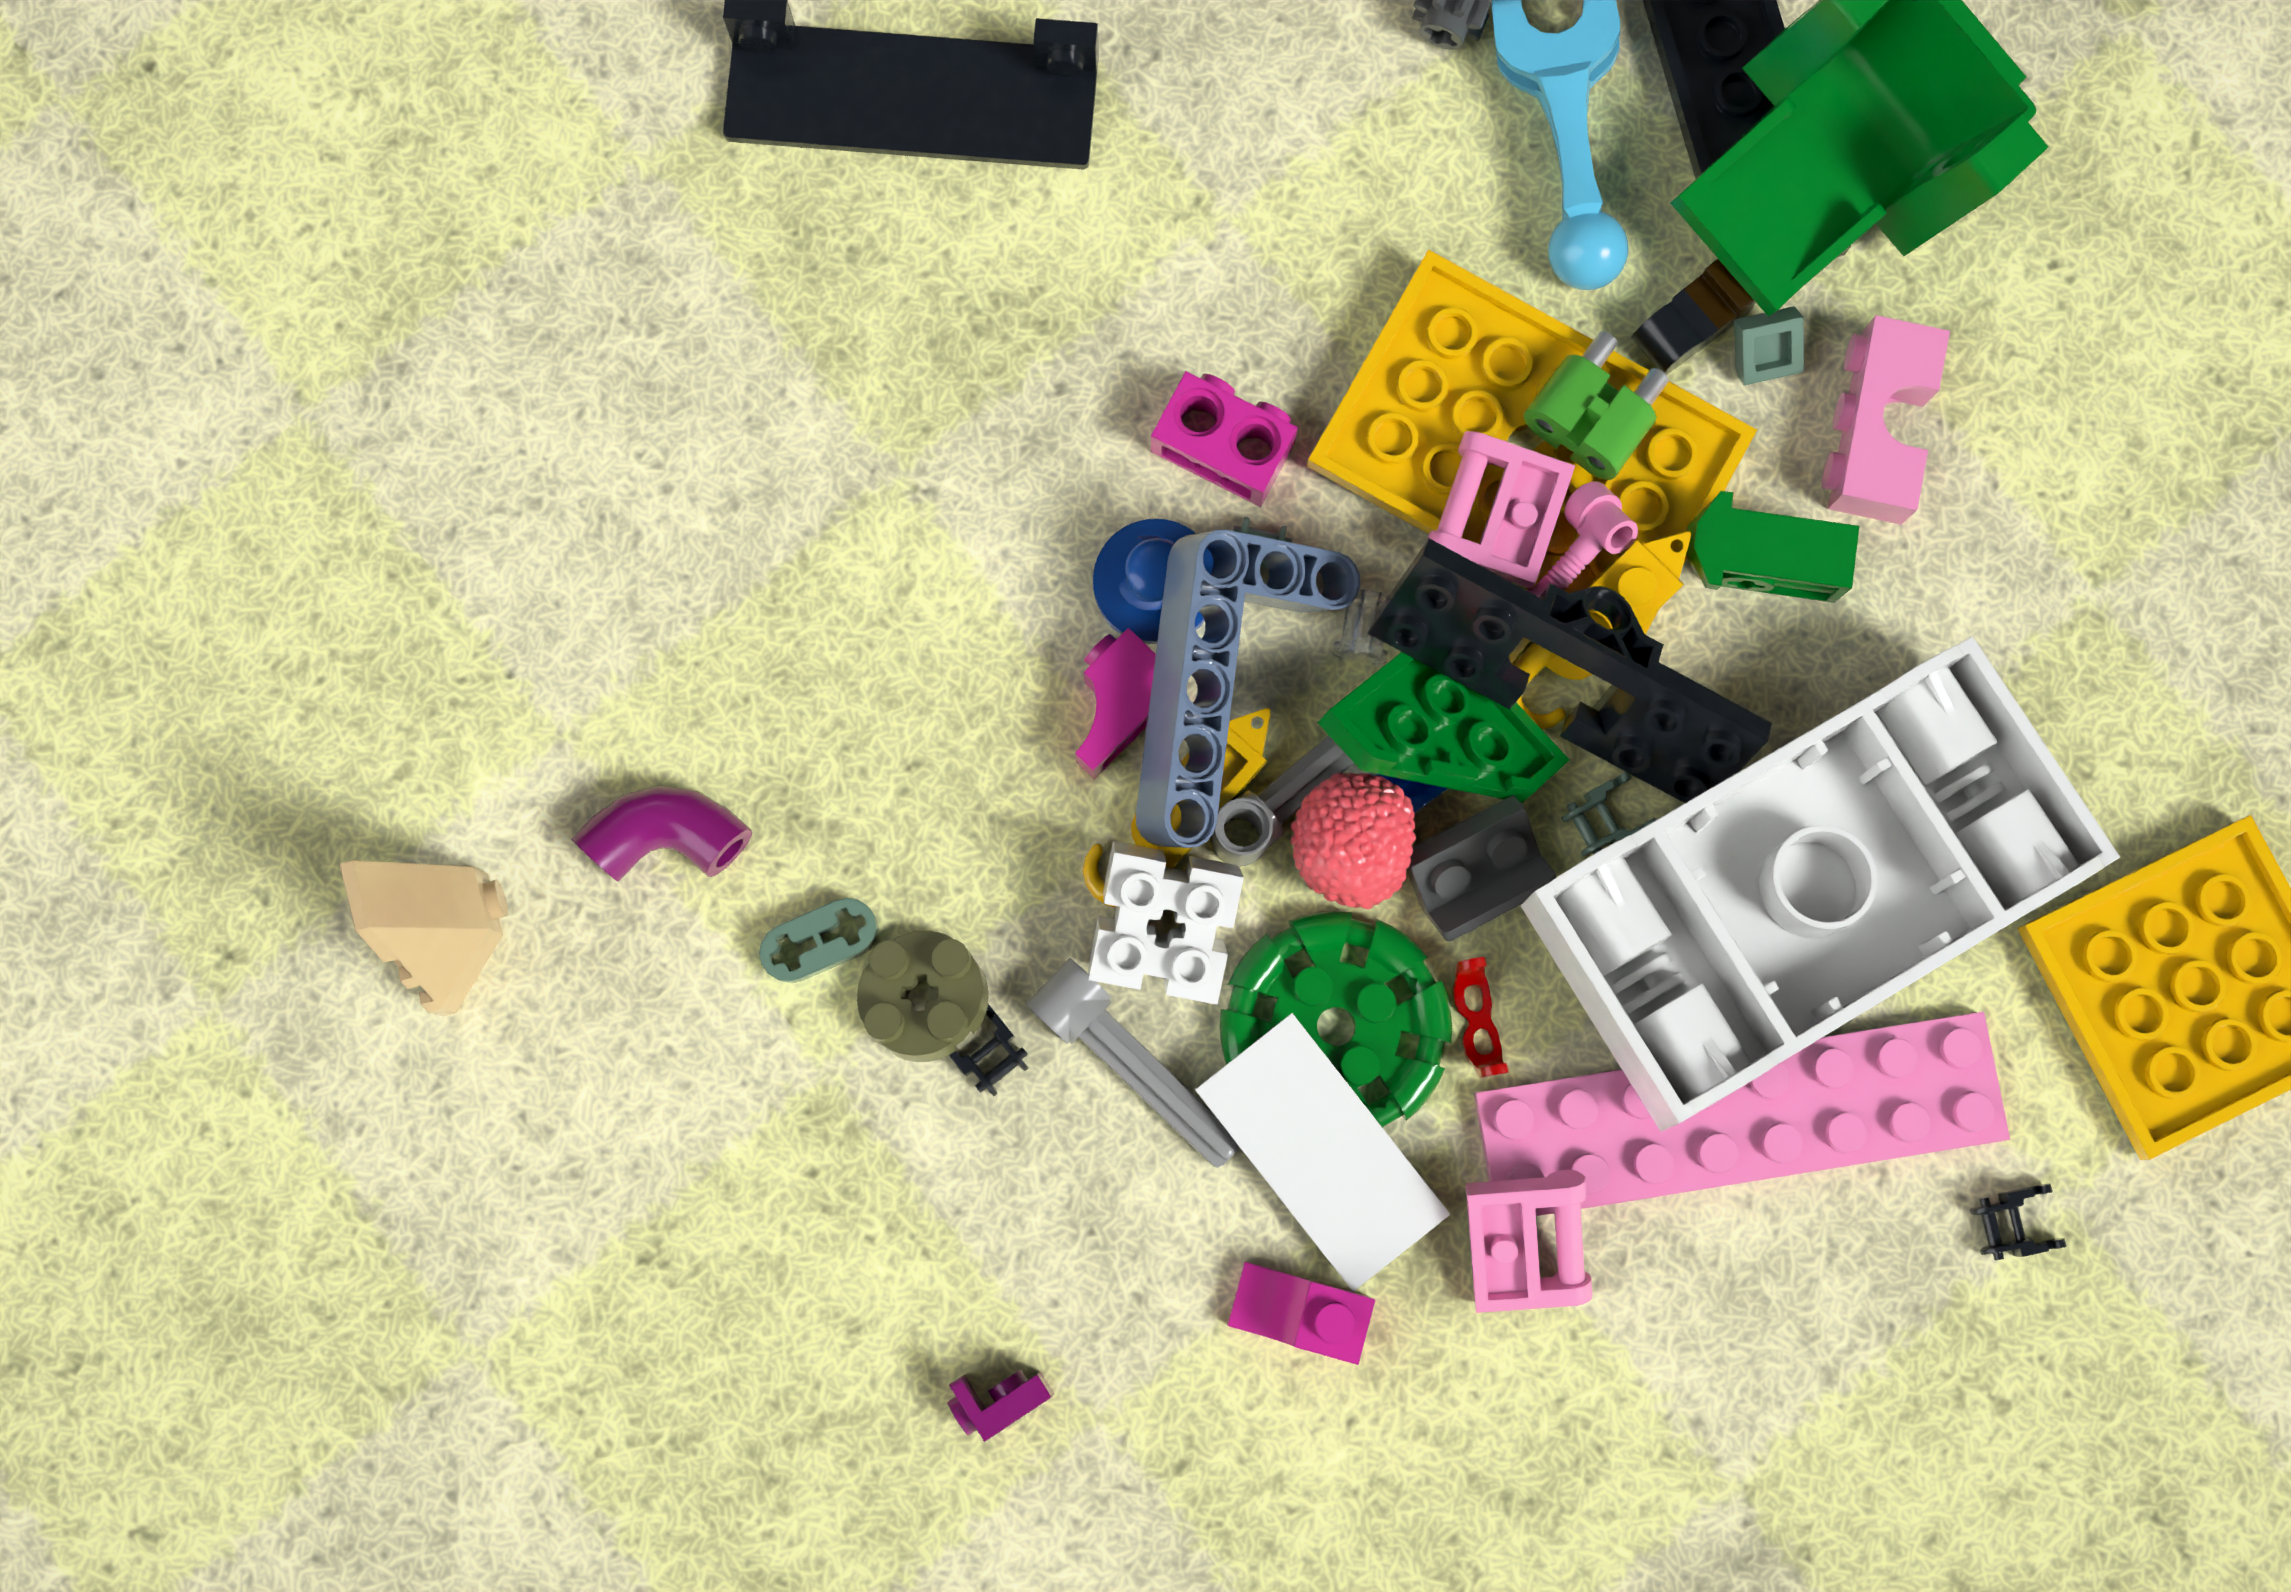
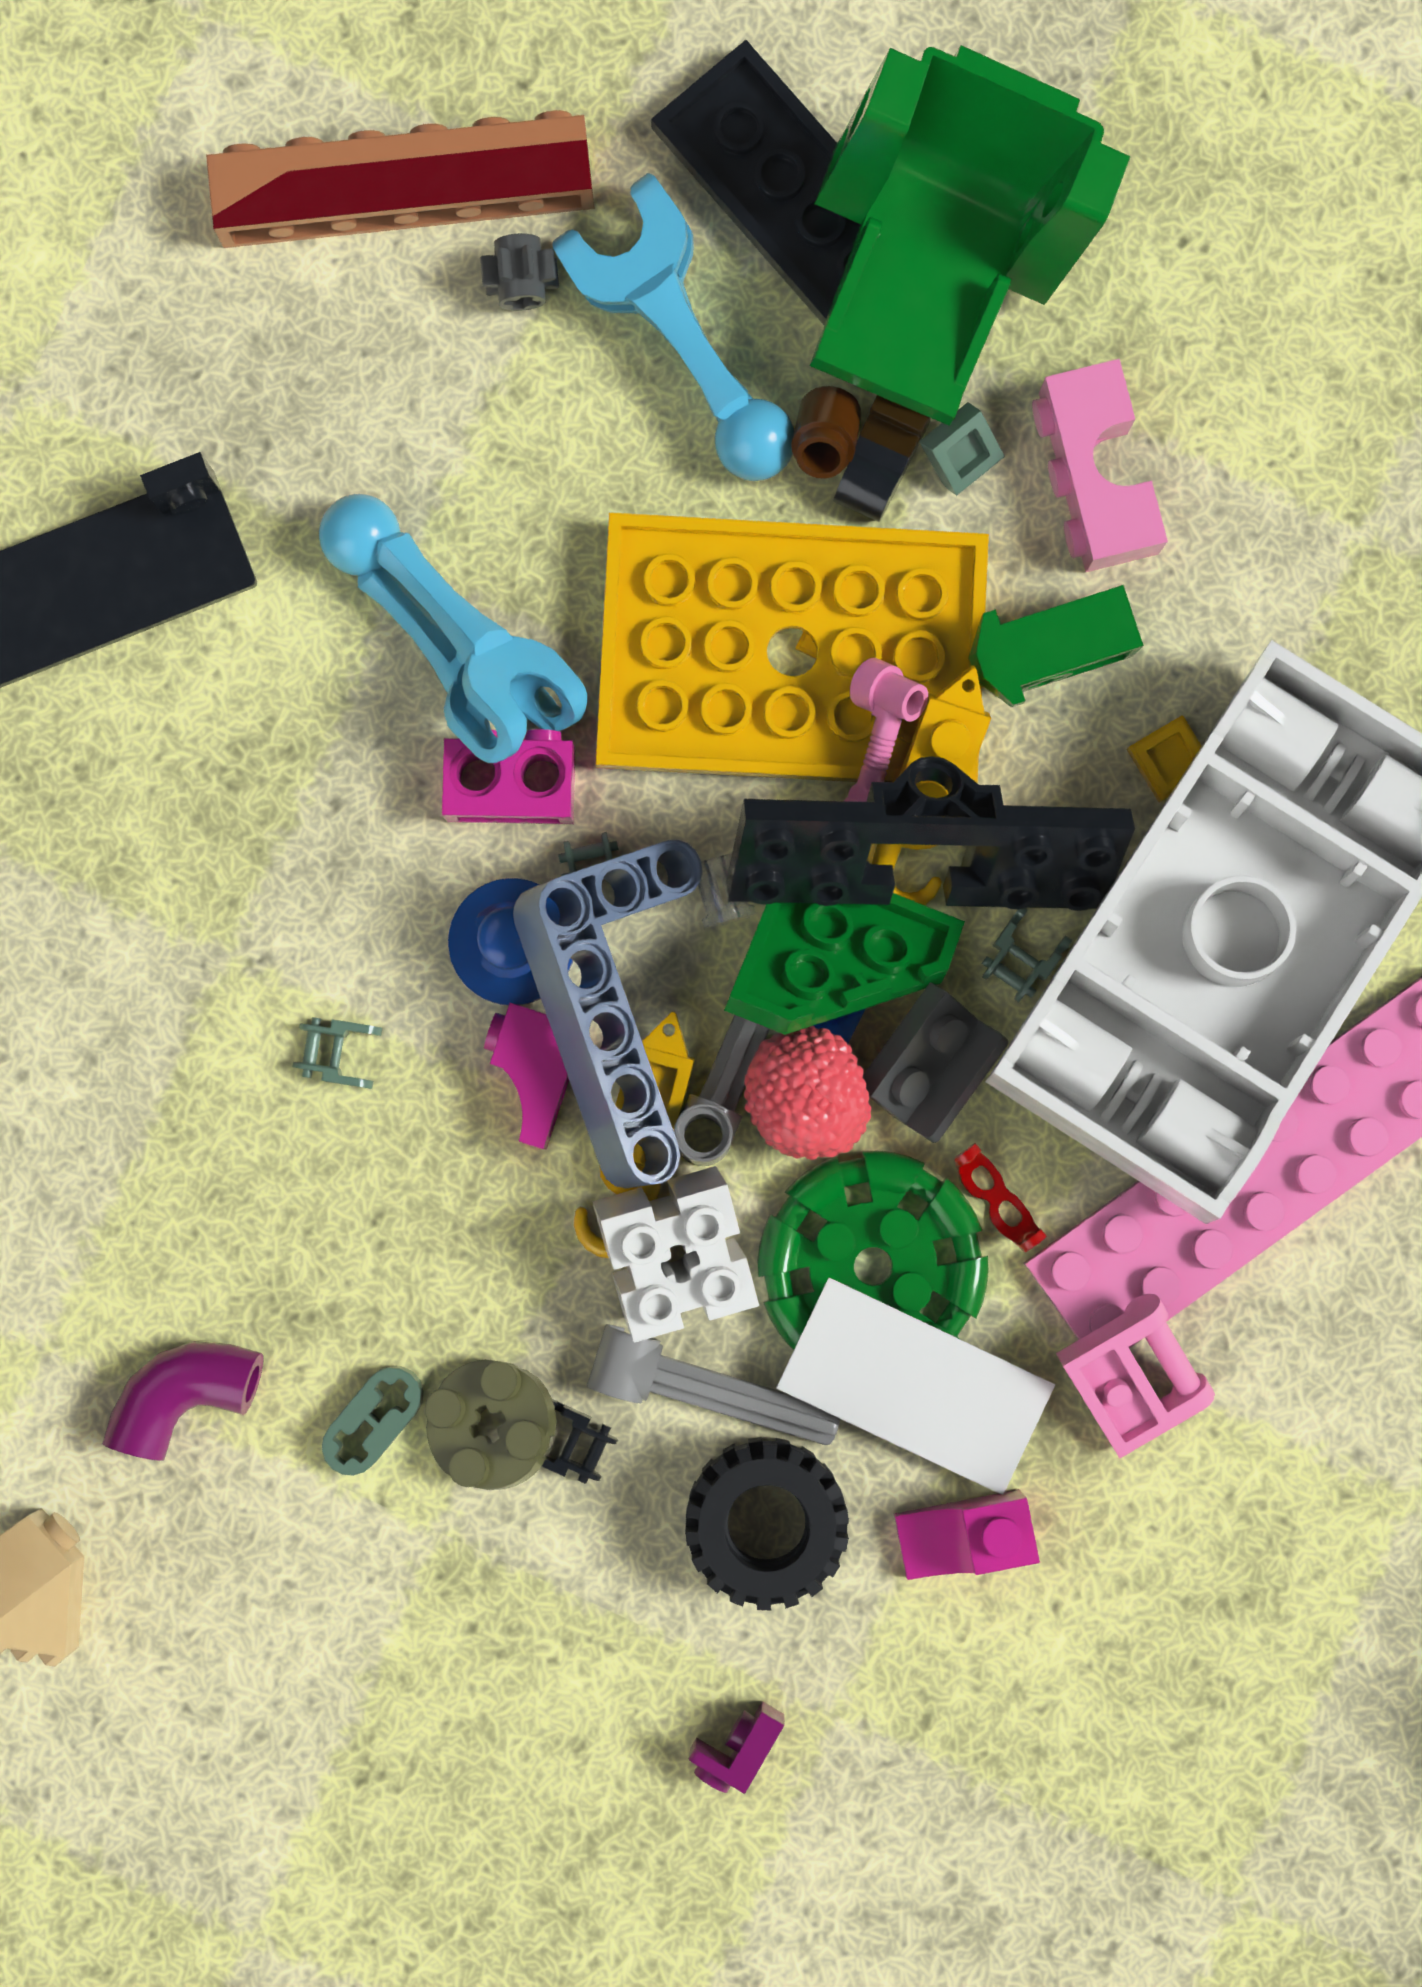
camera: 25 degrees left, 5 degrees up
(964, 584) = (340, 1030): none -> sand green piece
(1068, 1217) = (776, 1579): none -> black tyre
(1244, 308) = (475, 659): none -> medium azure piece
(1521, 512) = (813, 723): bright pink plate -> none
(1592, 415) = (831, 597): bright green piece -> none
(1655, 271) = (826, 431): none -> reddish brown brick
(1821, 699) = (1165, 756): none -> yellow tile

